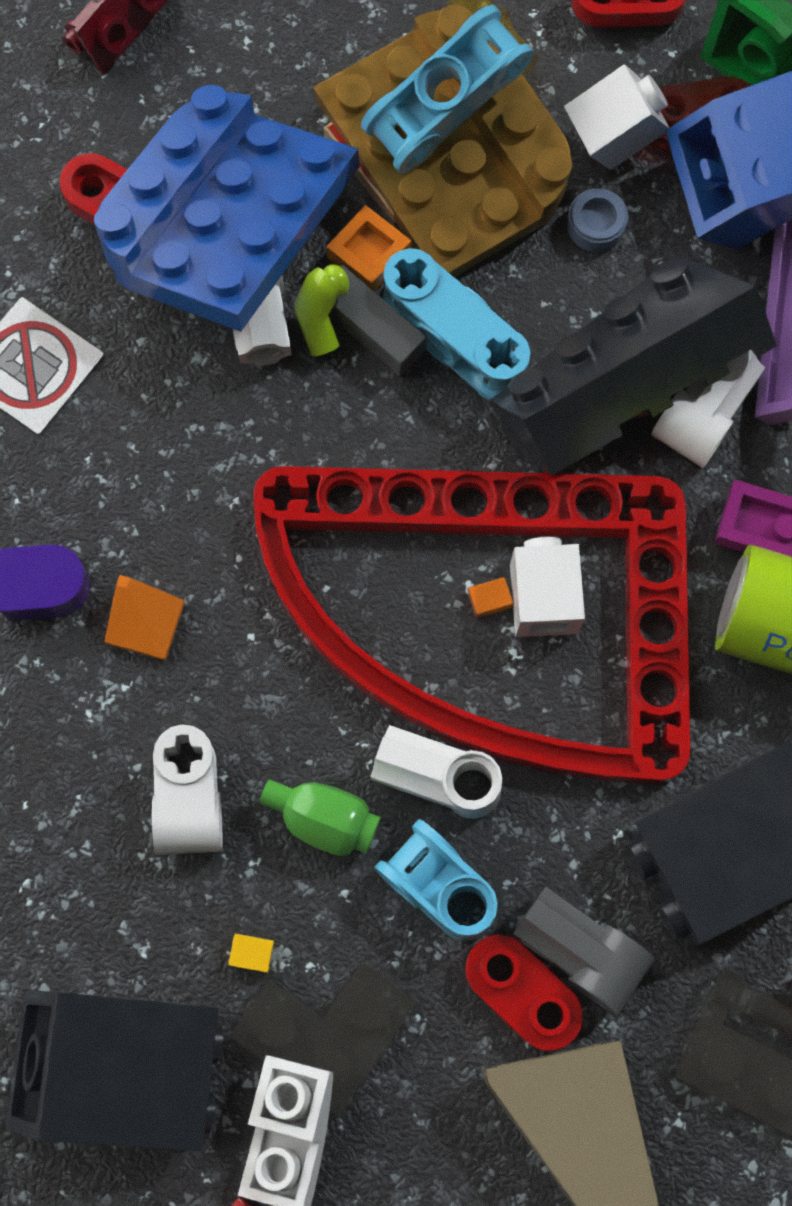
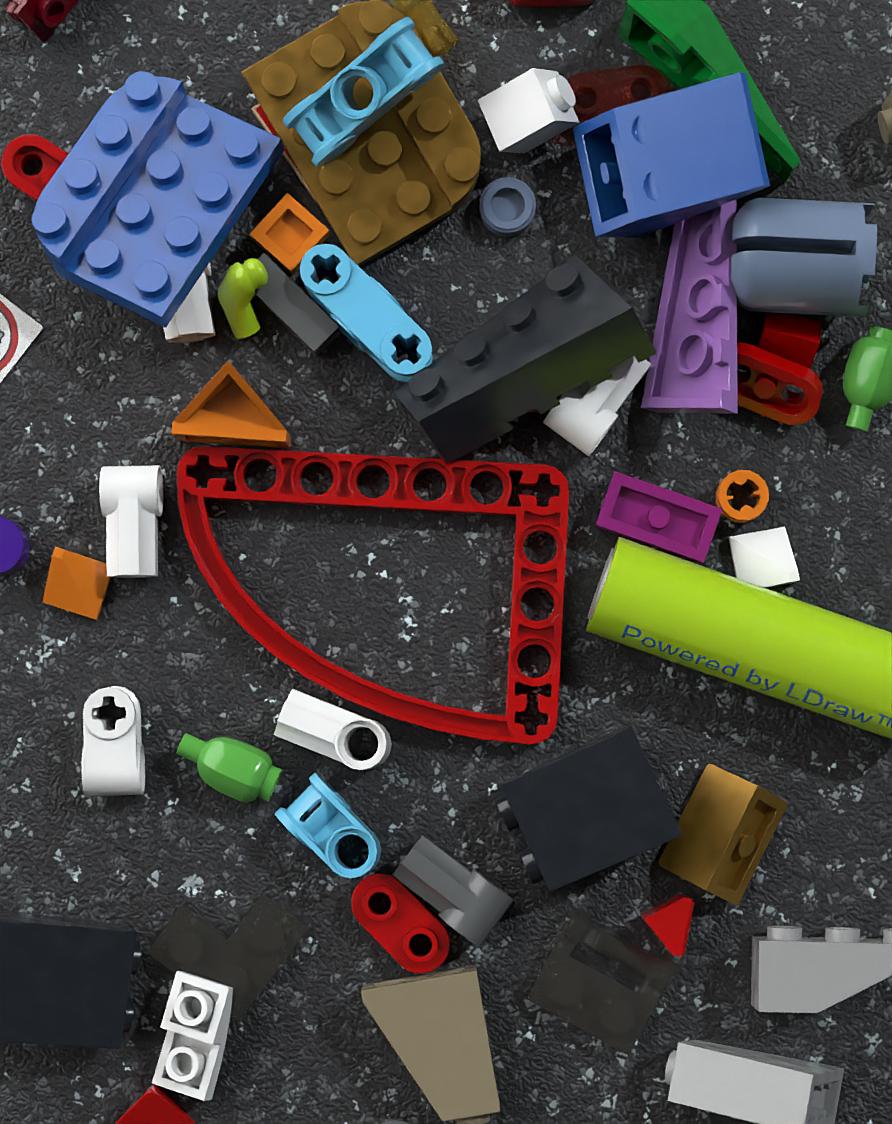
camera: 10 degrees right, 10 degrees up
(203, 532) = (131, 502): none -> white piece
(251, 953) = (168, 881): yellow piece -> none
(312, 427) = (229, 414): none -> orange slope
(490, 597) = (389, 570): orange piece -> none
(546, 588) = (437, 566): white brick -> none

